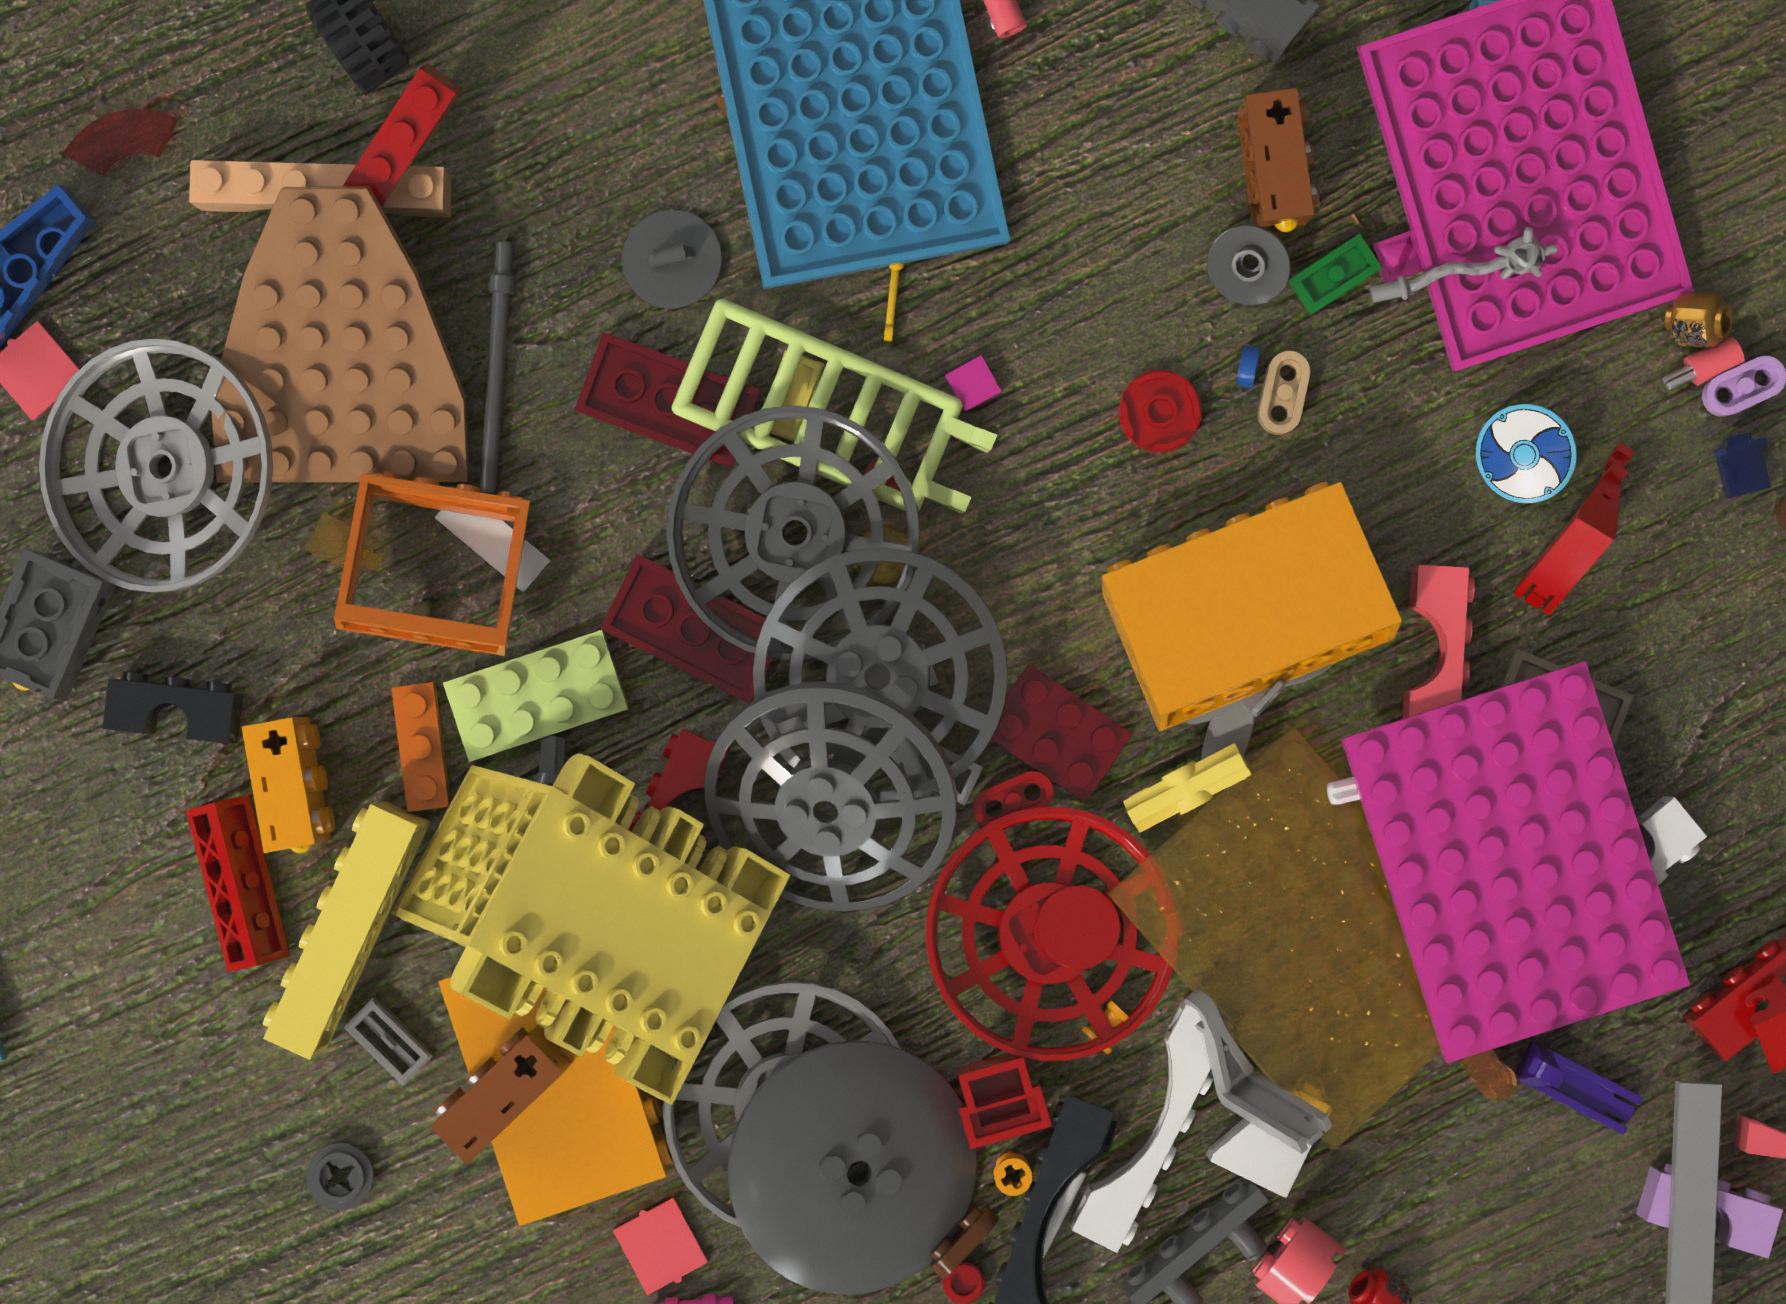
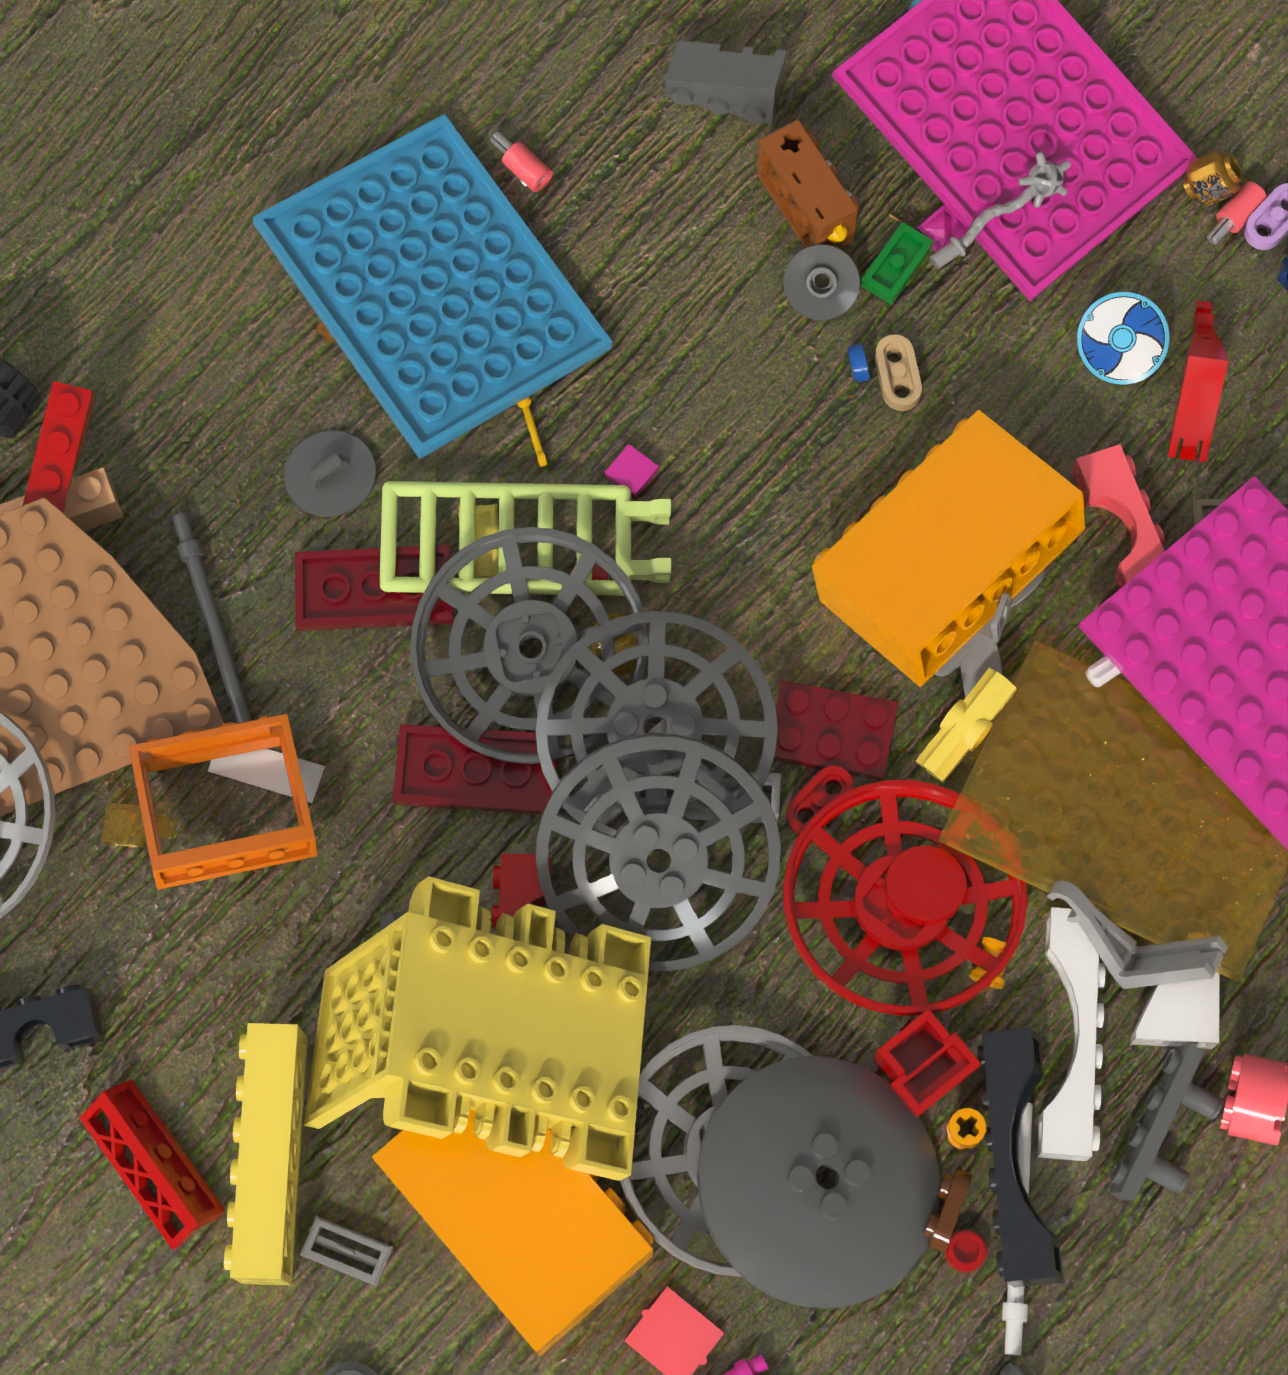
camera: 25 degrees left, 15 degrees down
(288, 784) = (165, 1045): light orange piece -> none
(421, 746) = (272, 971): orange plate -> none
(499, 1093) = (468, 1223): dark orange piece -> none
(536, 695) = (358, 886): yellowish green plate -> none
(1159, 411) = (800, 431): red tile -> none

